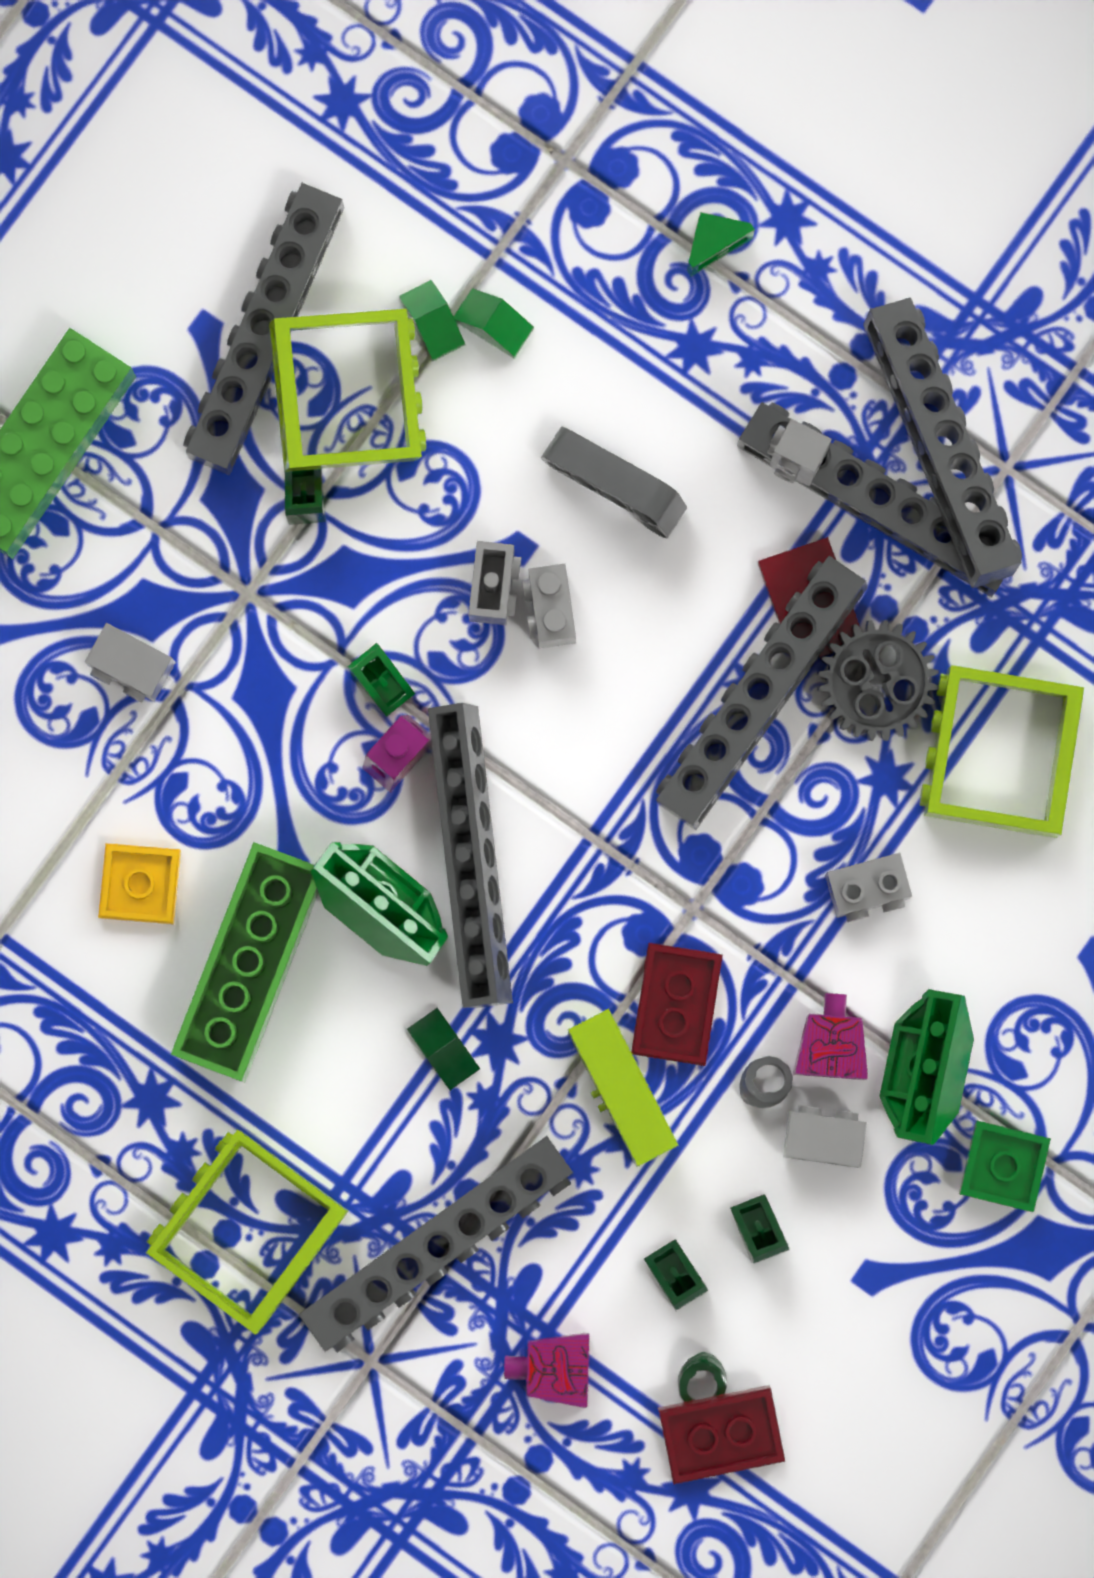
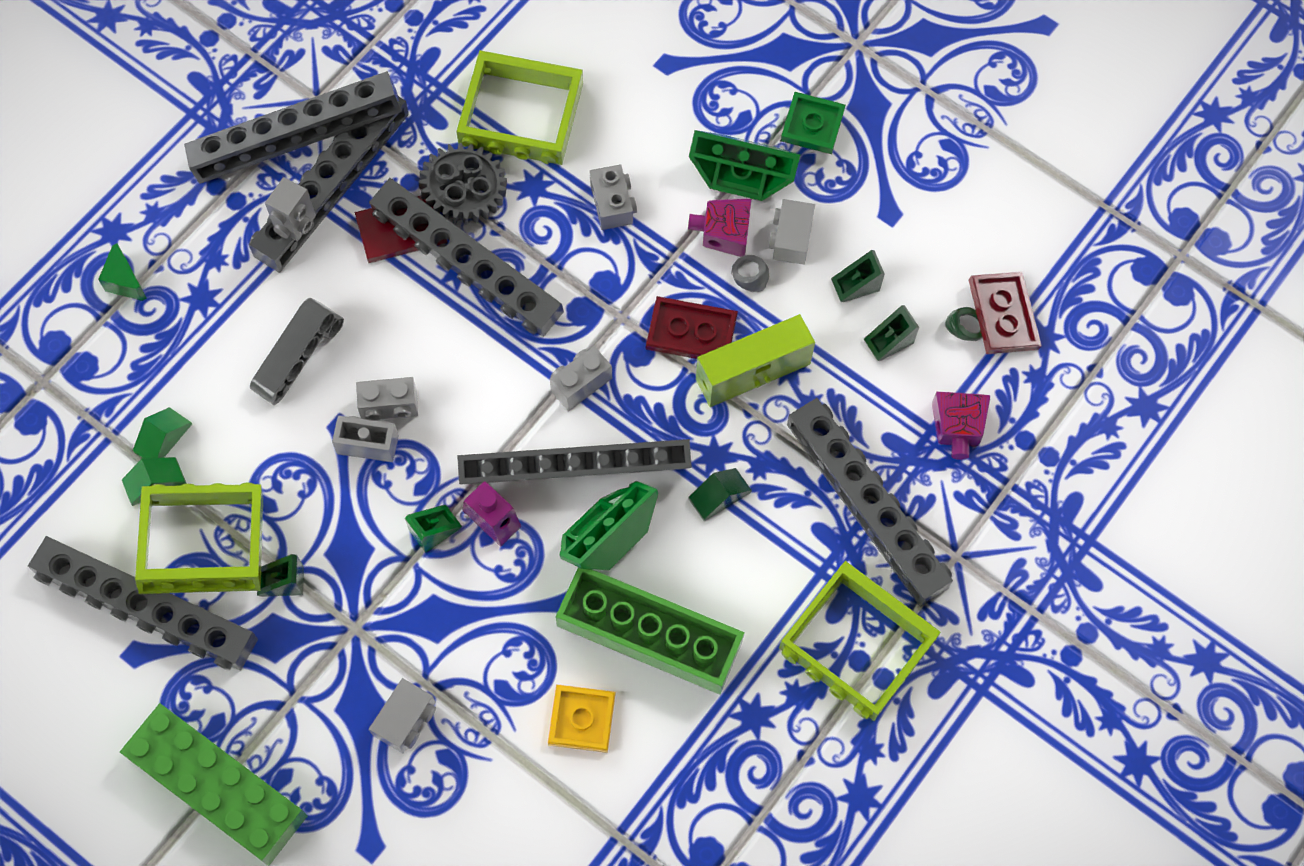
camera: 90 degrees left, 15 degrees down
(592, 857) = (580, 377): none -> light grey brick

